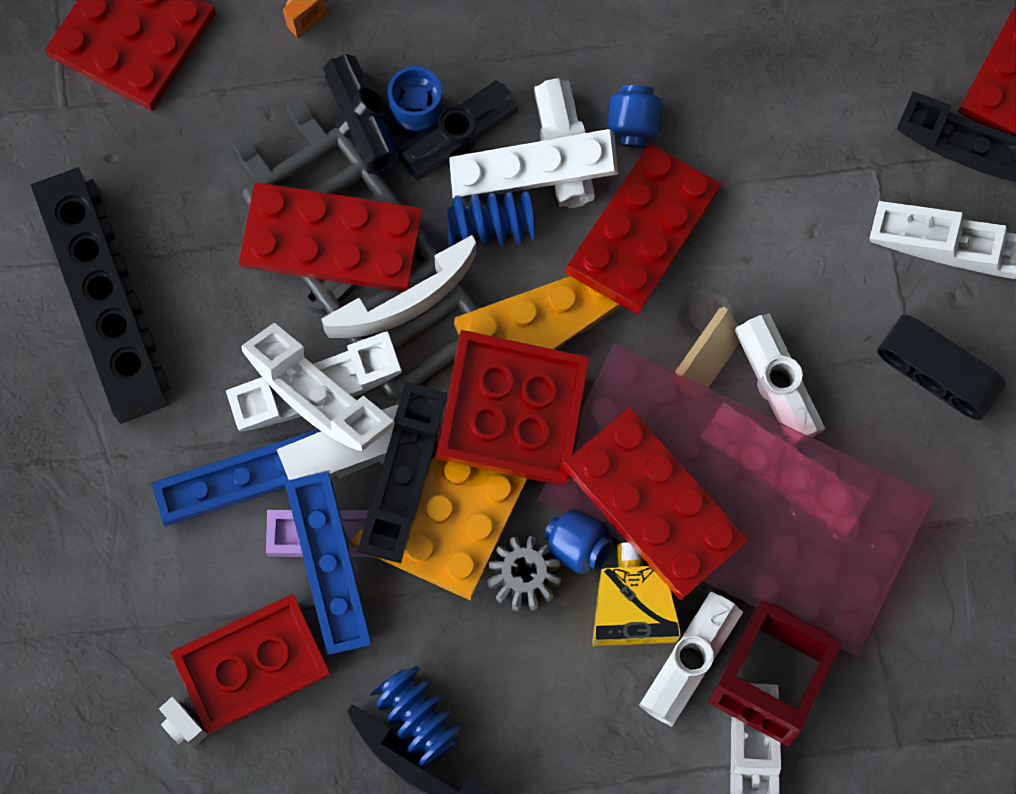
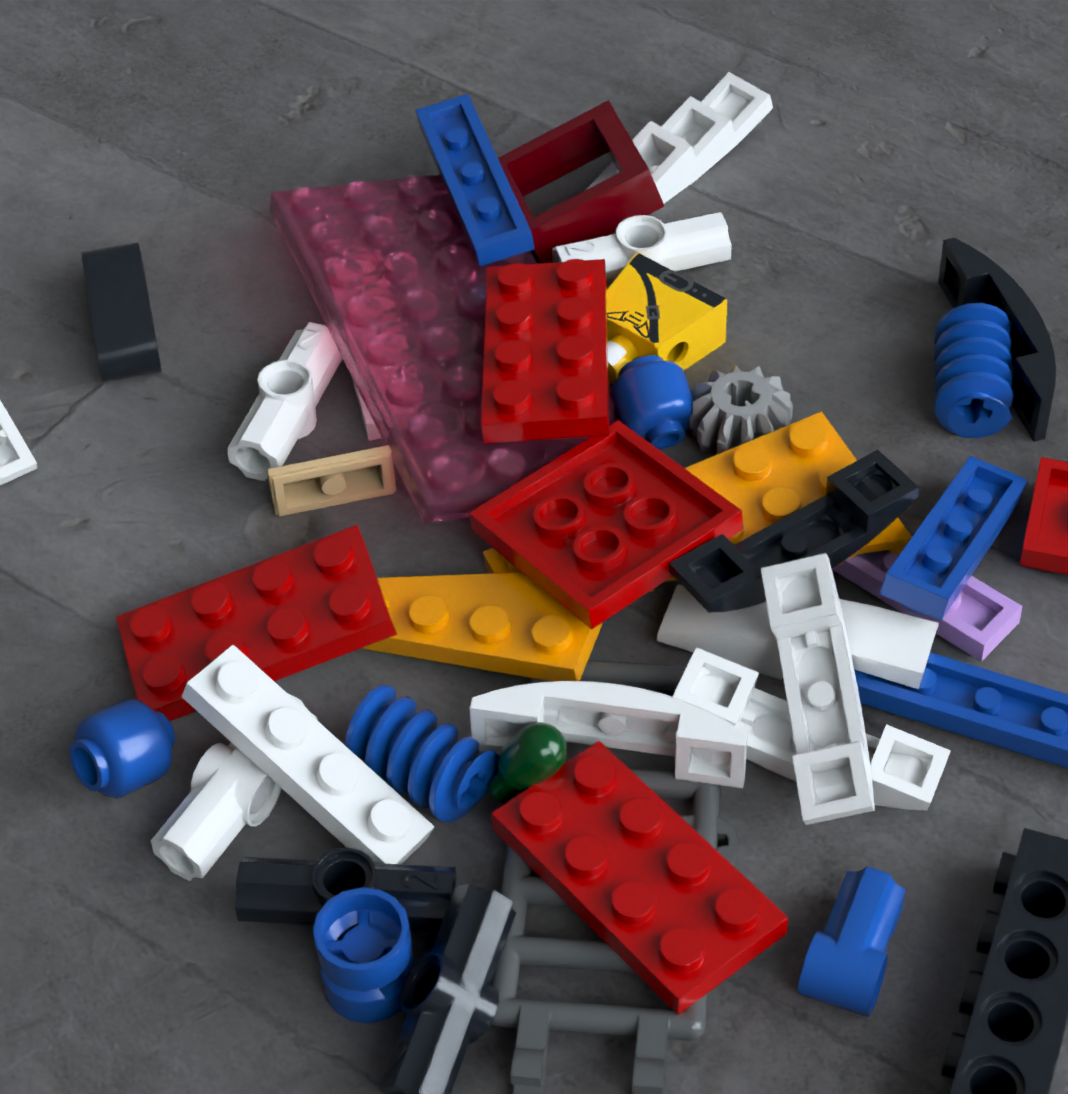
camera: 135 degrees left, 25 degrees down
(204, 281) = (850, 957): none -> blue piece
(425, 247) = (528, 760): none -> dark green cylinder
(831, 611) = (475, 180): none -> blue plate

